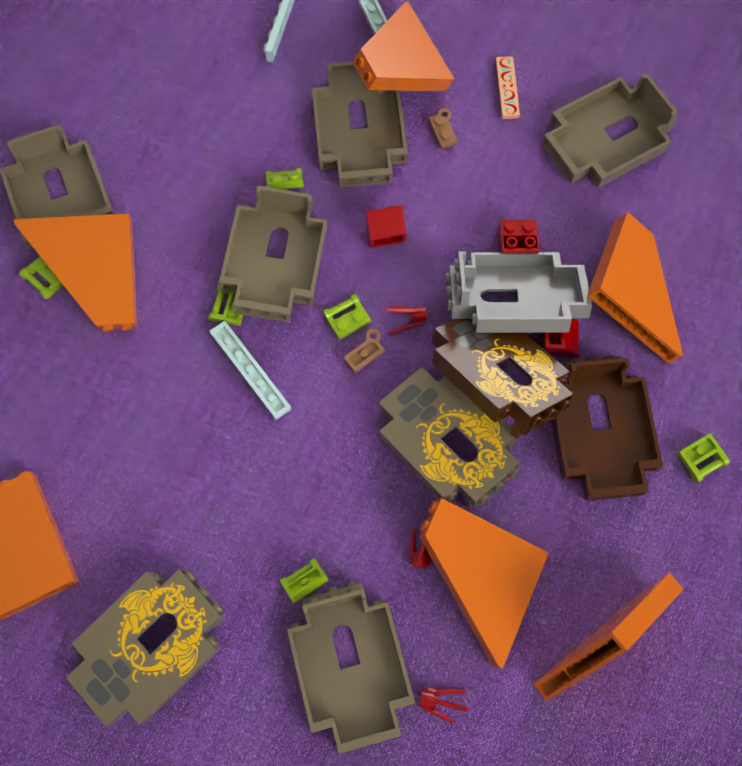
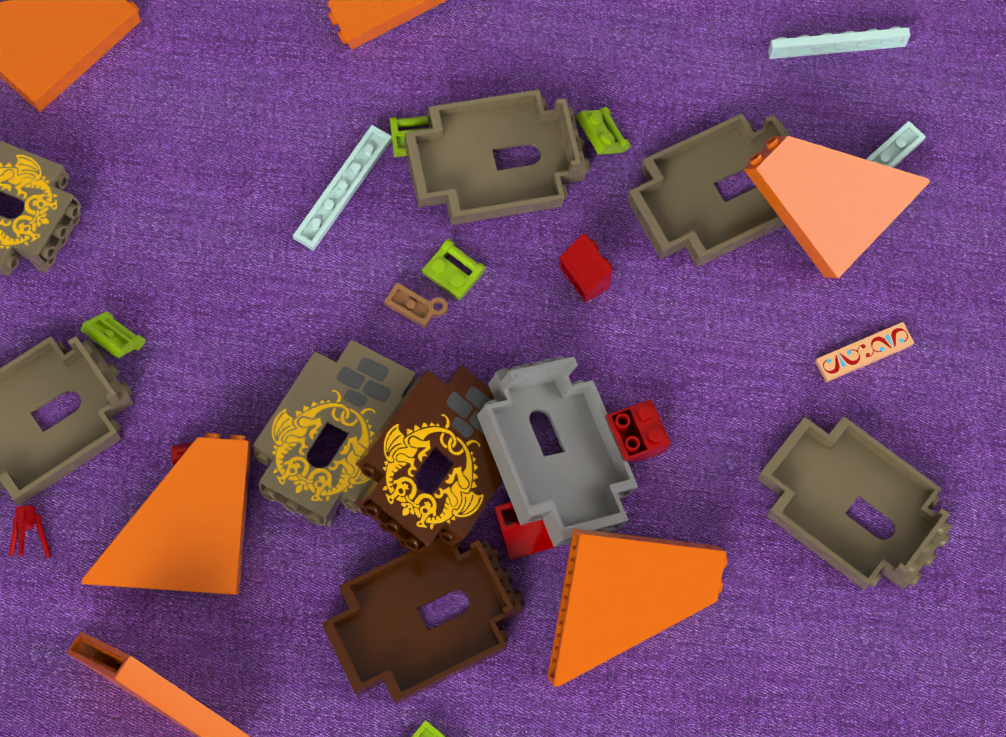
camera: 70 degrees right, 0 degrees up
(417, 314) = (488, 347): red plant -> none
(442, 129) = (764, 292): medium nougat hinge -> none

